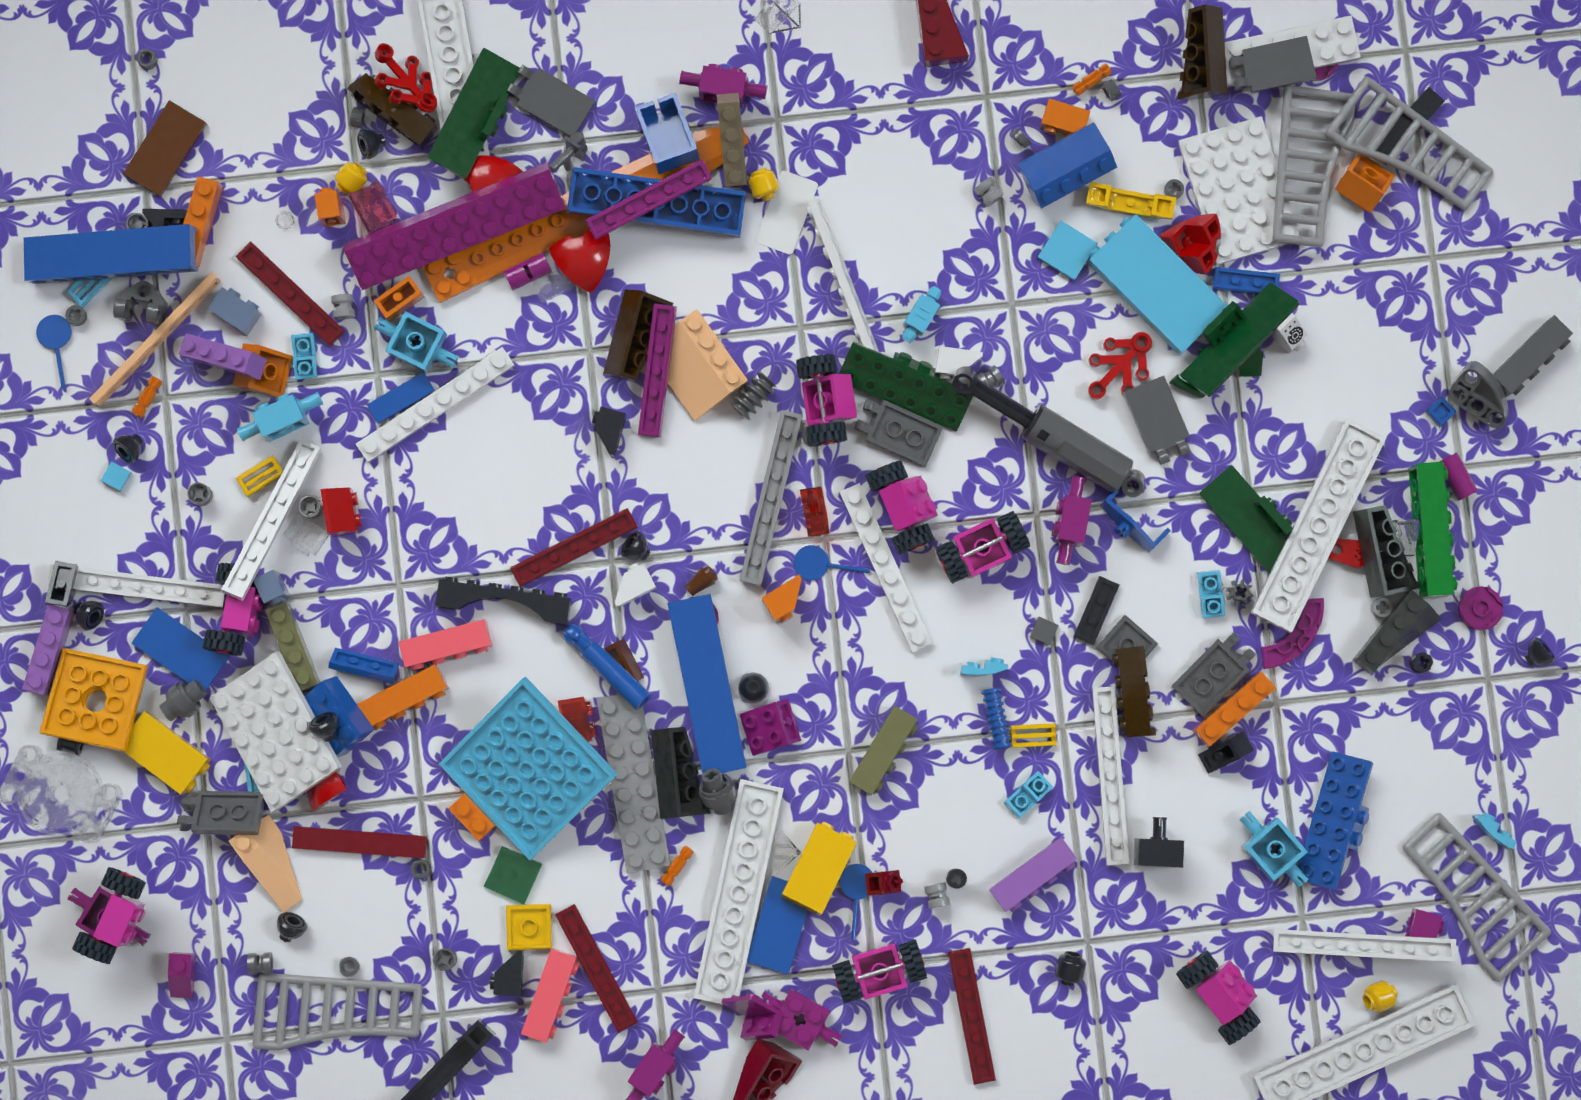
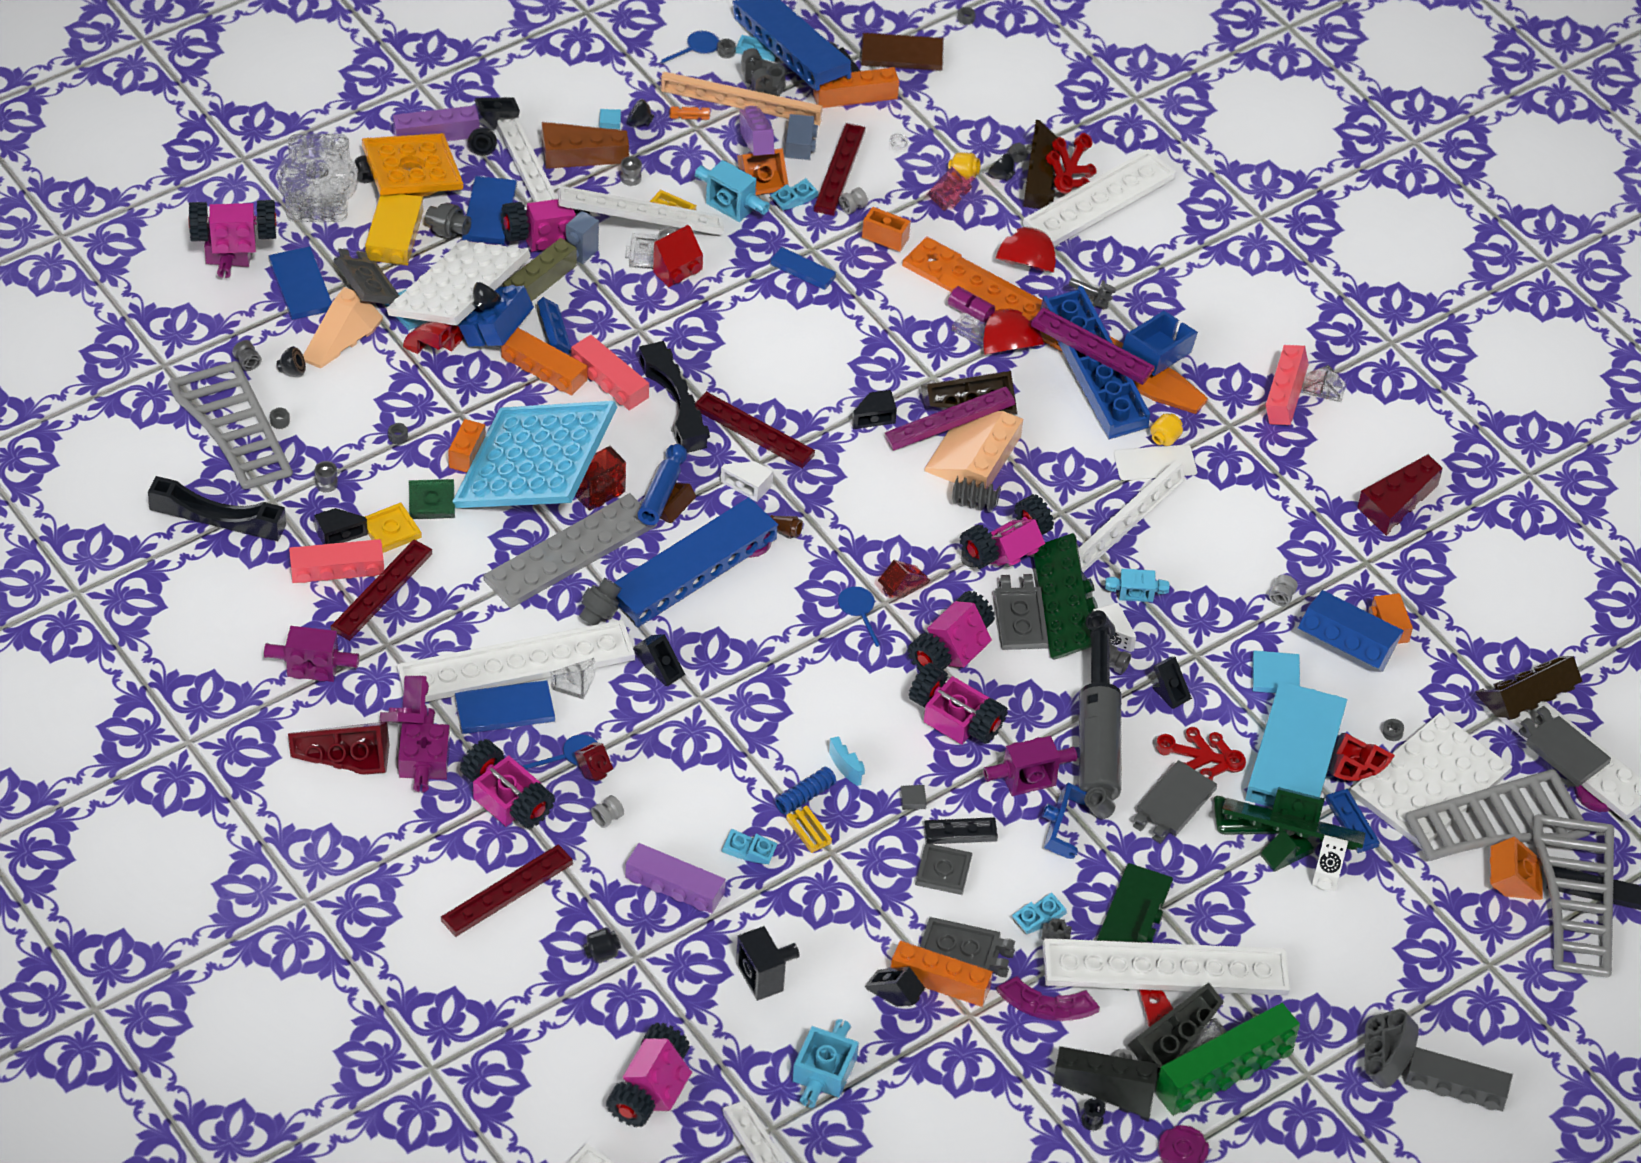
camera: 60 degrees right, 35 degrees down
(144, 525) = (582, 145): none -> dark orange wedge
(181, 974) = (207, 307): magenta slope -> none
(188, 870) = (300, 282): none -> blue tile
(329, 207) = (929, 157): orange brick -> none
(359, 842) = (396, 384): dark red tile -> none
(411, 329) = (857, 254): medium azure brick -> none
(435, 404) = (813, 292): white plate -> none
(454, 226) = (975, 234): magenta brick -> none
(474, 114) = (1077, 215): dark green bracket -> none
(552, 100) = (1129, 269): dark grey tile -> none
(635, 547) = (783, 466): black brick -> none
(676, 774) = (608, 562): pearl dark grey wedge -> none
(677, 865) = (513, 609): orange axle -> none
(718, 81) = (1229, 365): magenta brick -> none
(731, 139) = (1187, 380): dark tan brick -> none
(753, 687) = (713, 601): black brick -> none
(767, 45) = (1287, 384): none -> coral brick
(770, 727) = (689, 624): magenta bracket -> none
(771, 497) = (886, 545): light grey plate -> none
(783, 600) = (810, 581): orange slope -> none
(798, 769) = (660, 659): none -> black slope
(819, 868) = (576, 707): yellow brick -> none
(883, 750) = (718, 715): olive brick -> none
(885, 567) = (885, 657): white plate -> none
(963, 880) = (630, 816): black bush -> none
(1020, 138) = (1349, 593): dark grey tile -> none
(1041, 349) = (1171, 683): none -> black slope
(1091, 79) = (1442, 627): orange axle -> none
(1110, 775) = (816, 899): white plate -> none
(1111, 90) = (1444, 643): dark grey axle -> none
(1130, 202) = (1358, 706): yellow slope -> none
(1133, 692) = (903, 884): dark brown wedge -> none
(1336, 820) = (891, 1112): blue bracket -> none
(1440, 411) = (1349, 1031): blue tile -> none
(1458, 477) = (1297, 1067): magenta pin -> none

